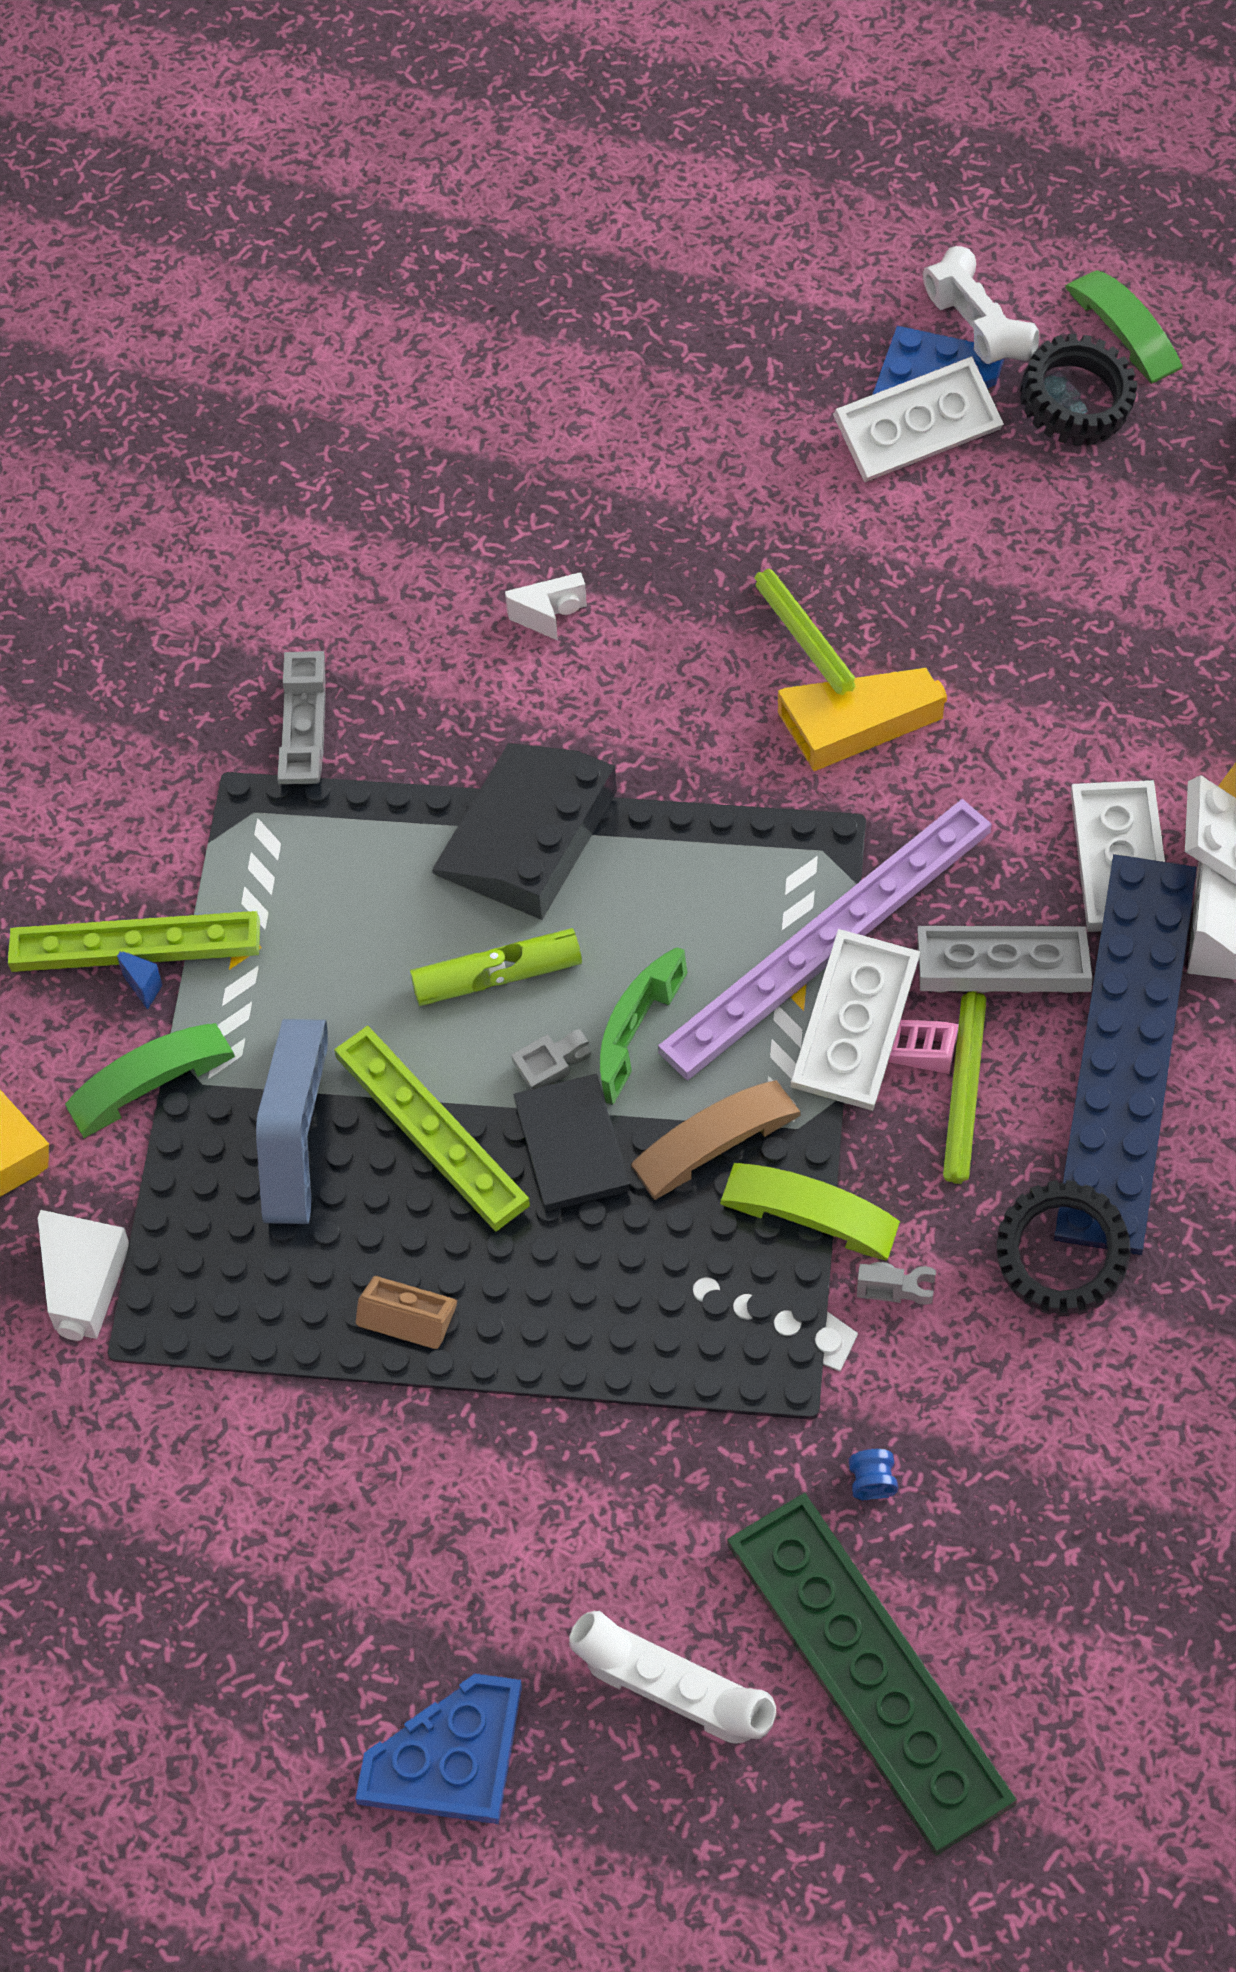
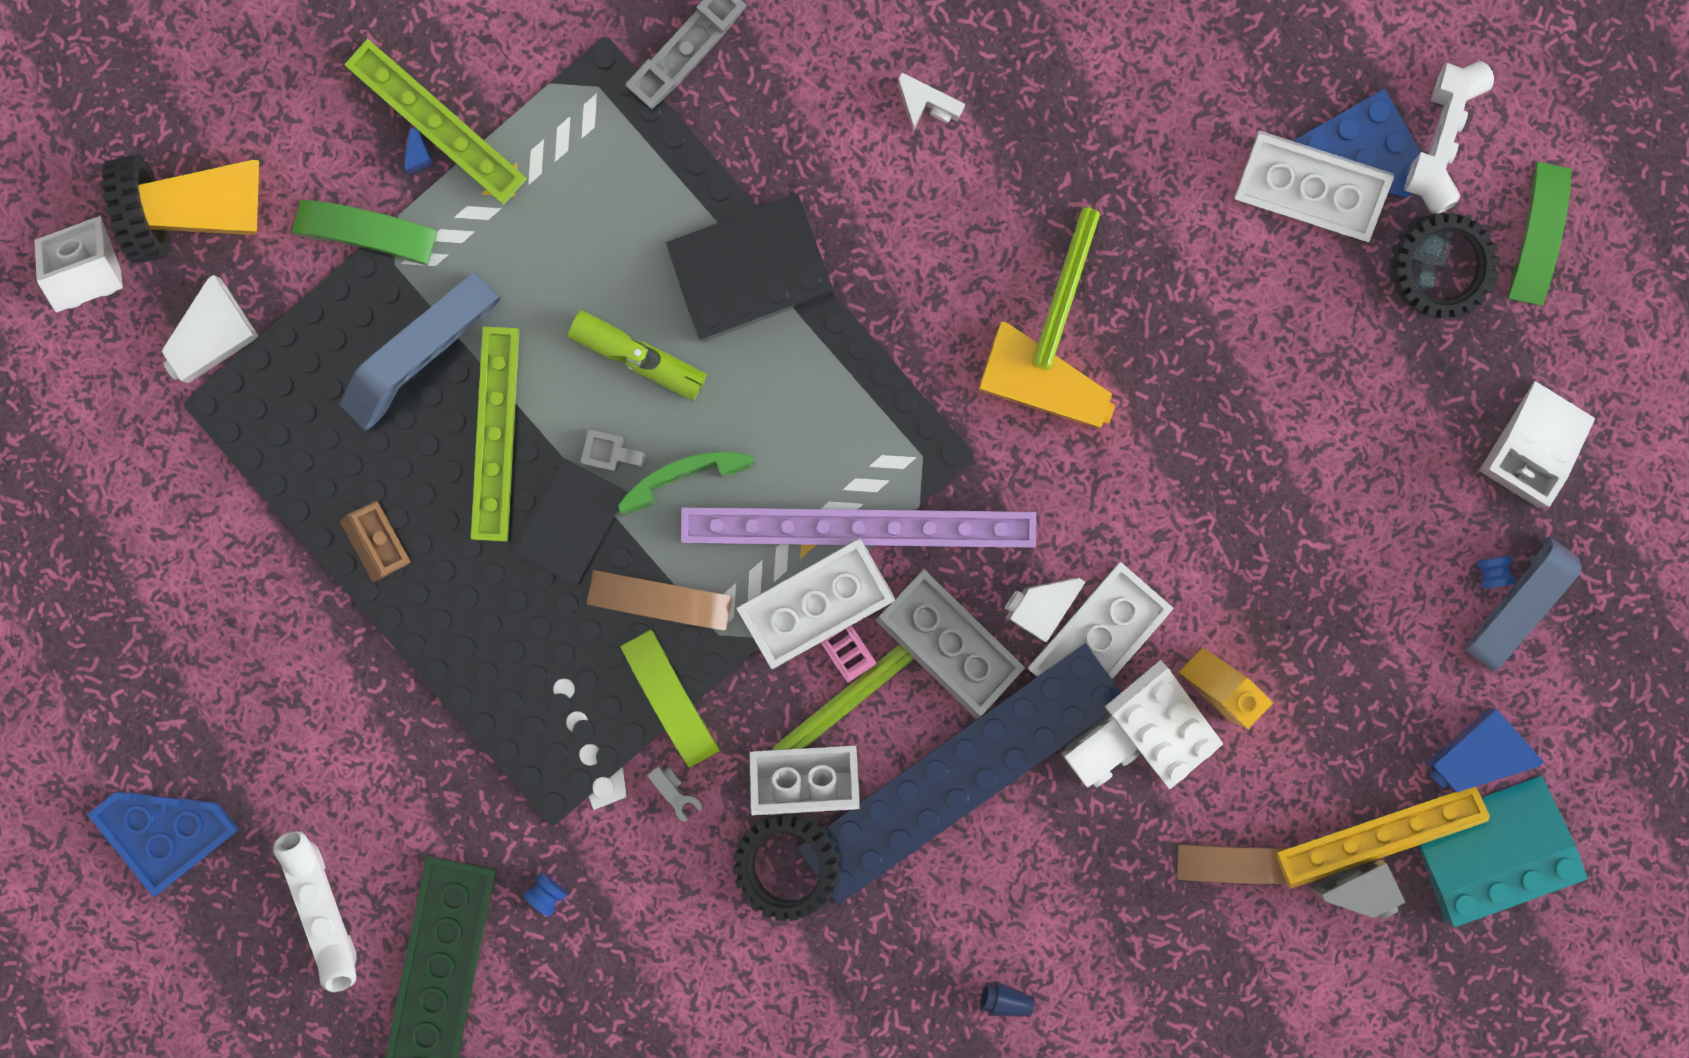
camera: 40 degrees right, 30 degrees up
(999, 1160) = (804, 780): none -> white slope
(1047, 860) = (1042, 606): none -> white slope

